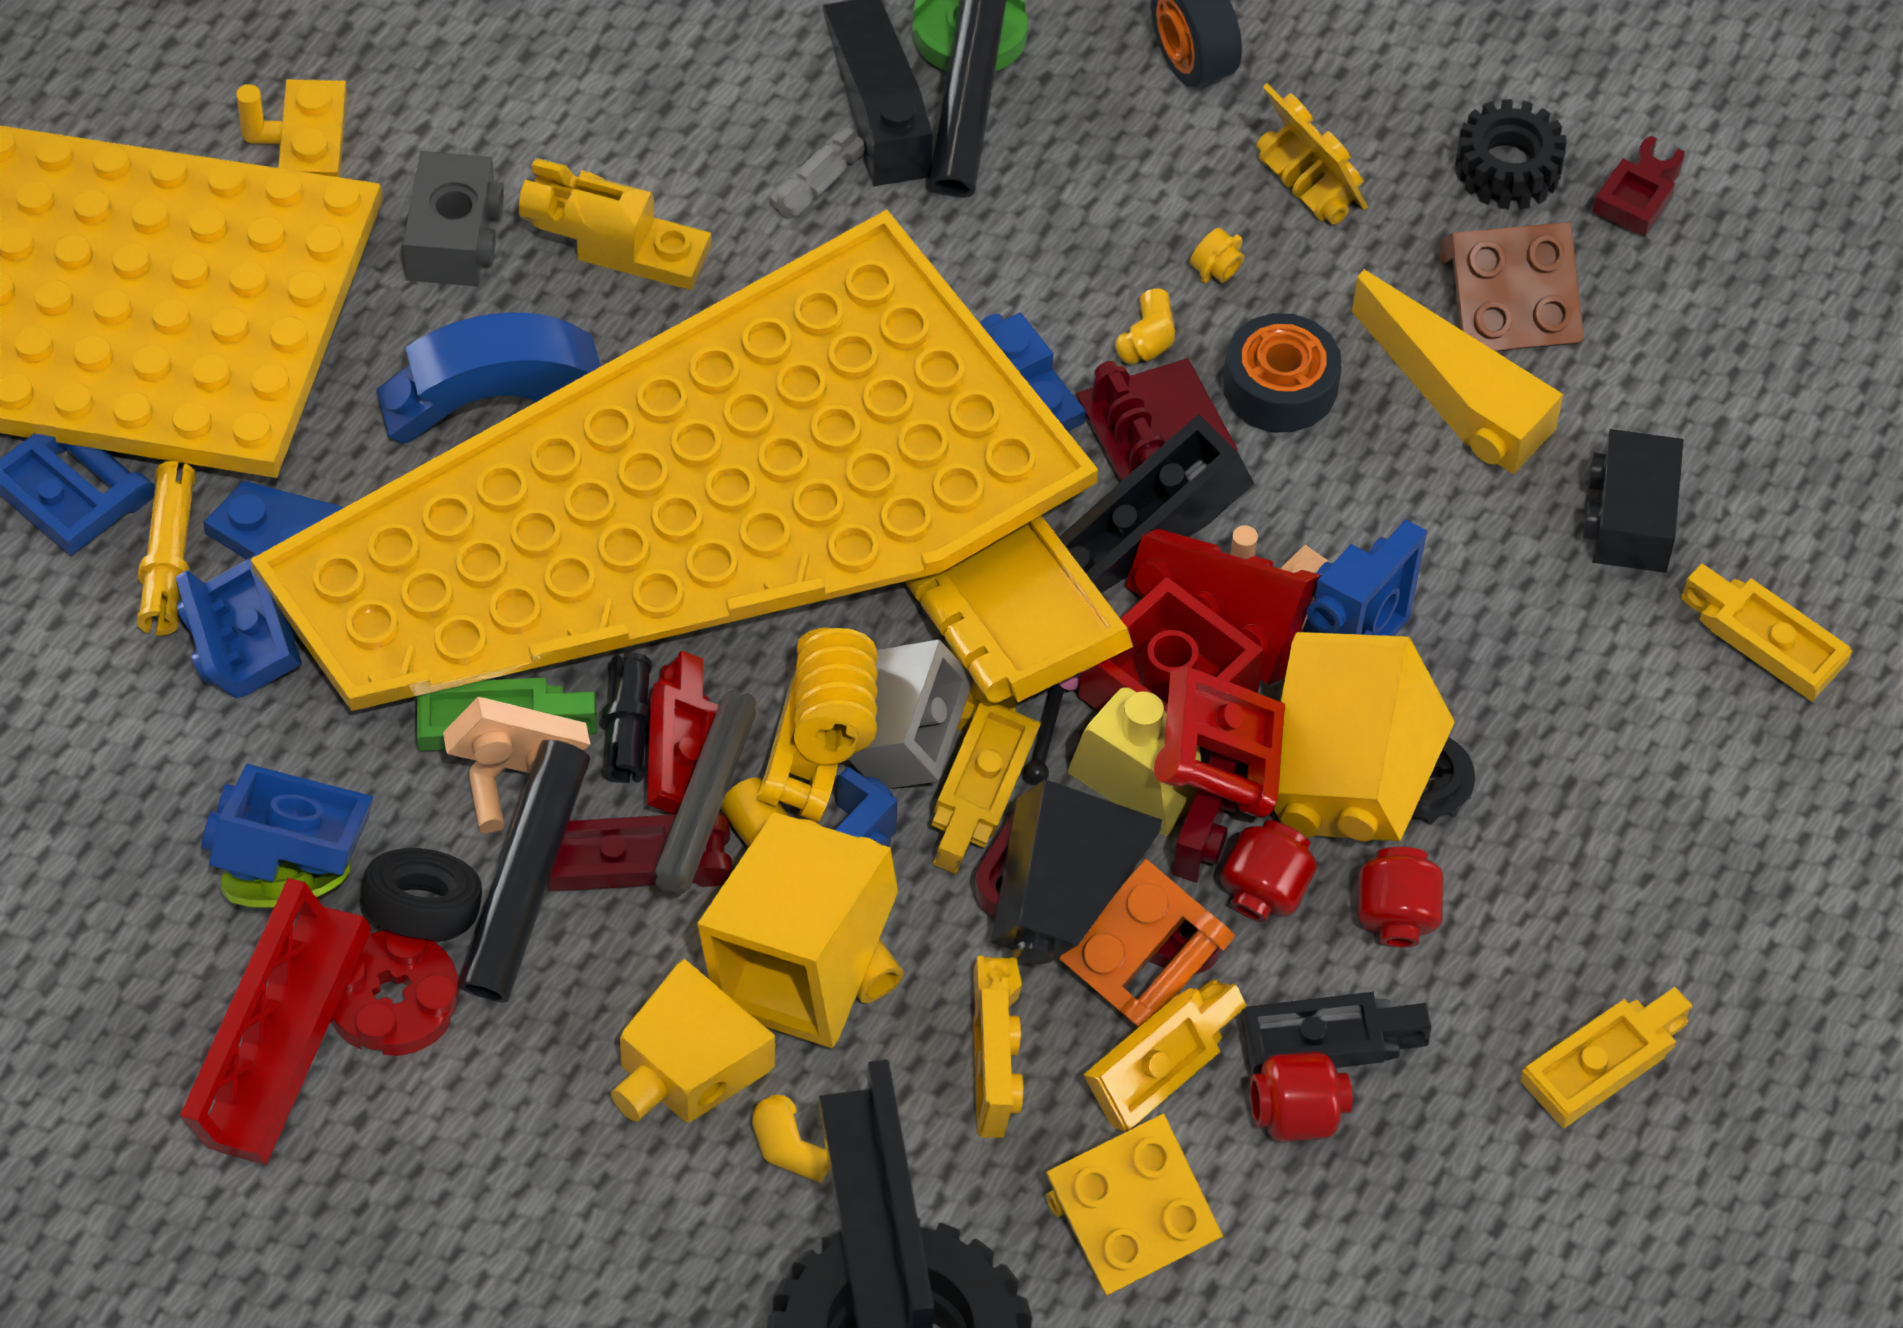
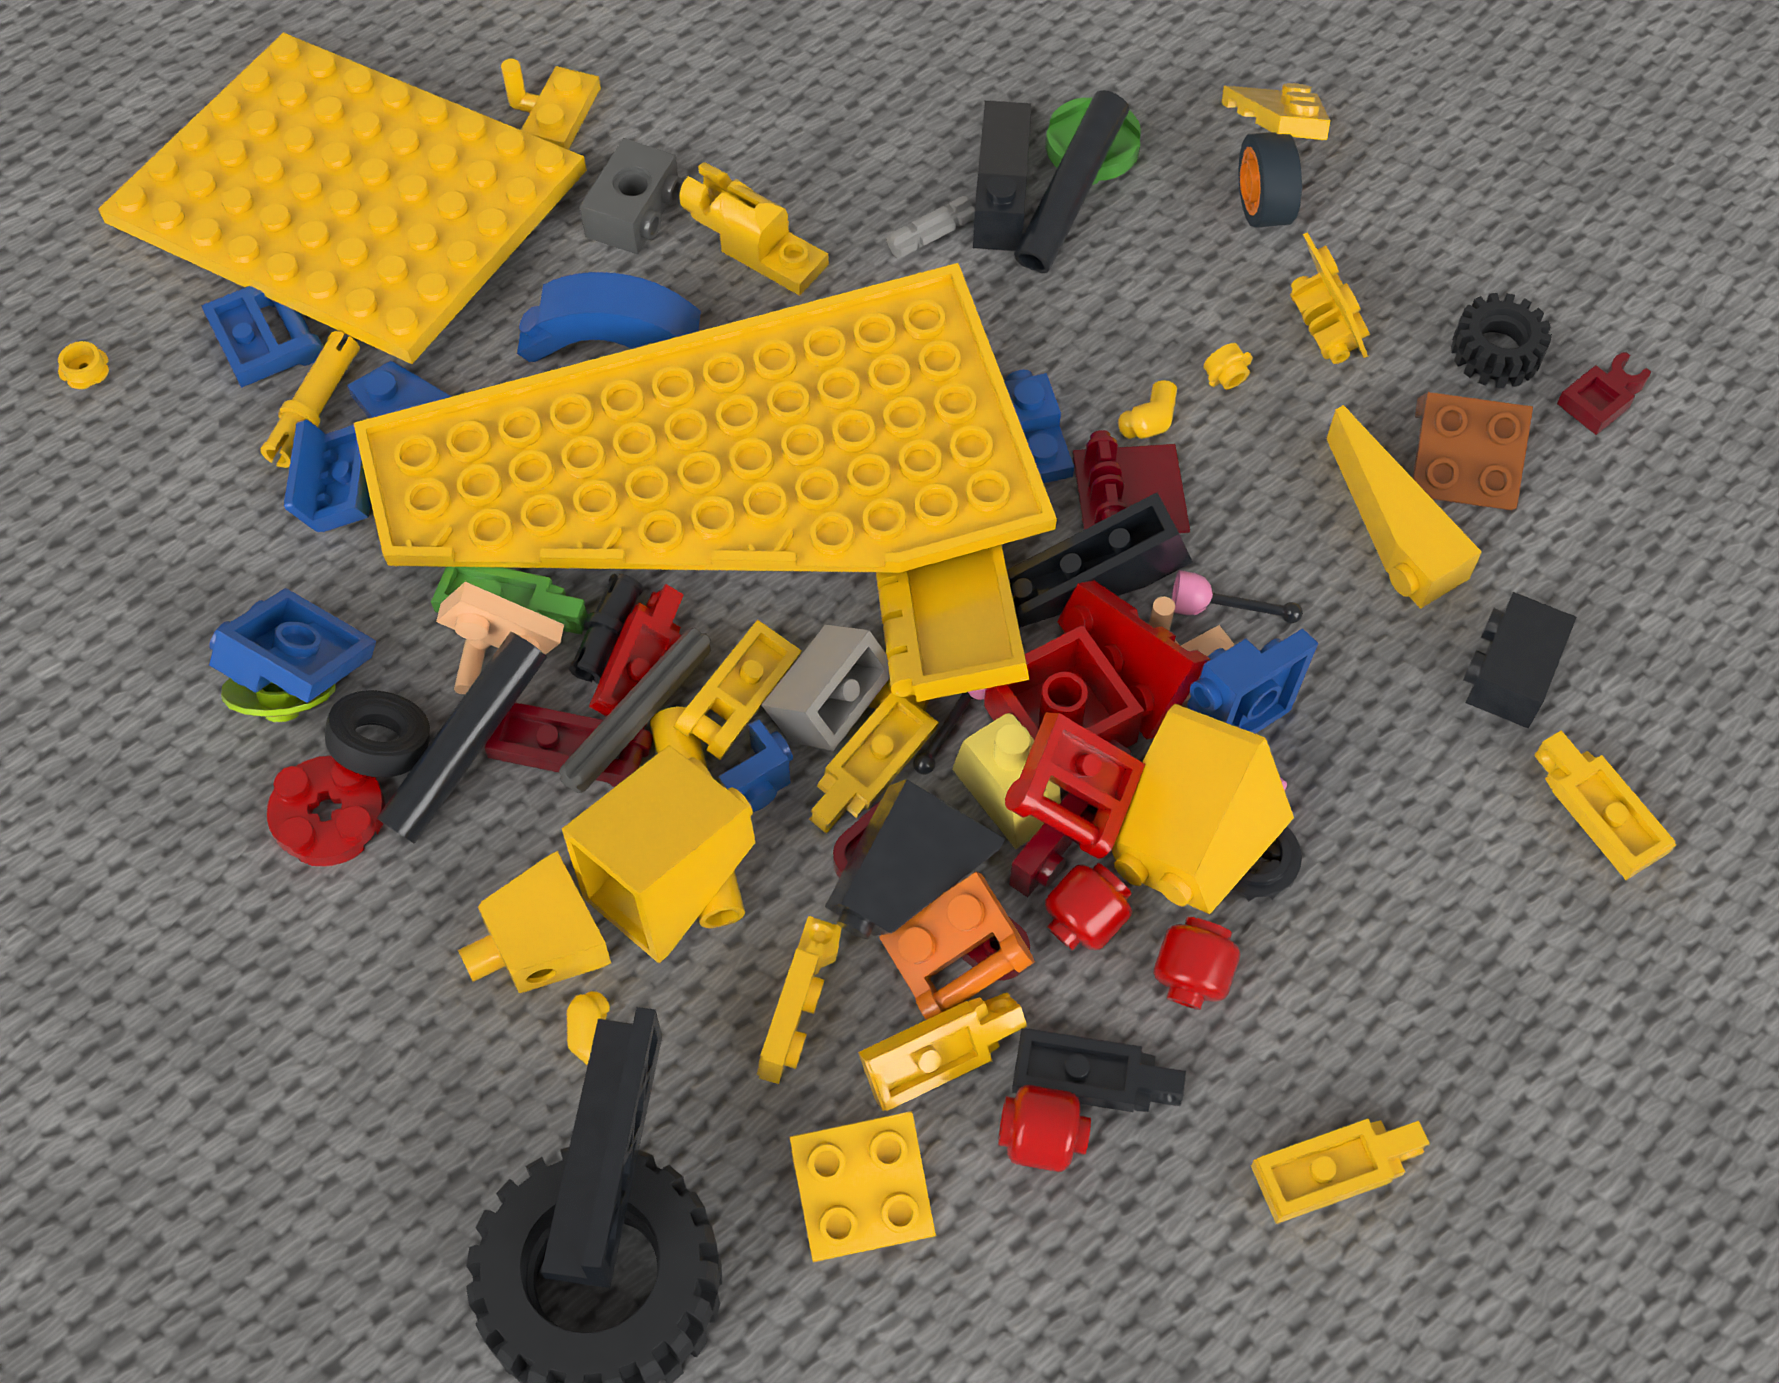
camera: 20 degrees right, 5 degrees up
(278, 1025) = (213, 818): red fence -> none
(835, 694) = (765, 655): yellow piece -> none
(1270, 517) = (1194, 593): none -> hinge
(1282, 372) = (1271, 477): black wheel -> none

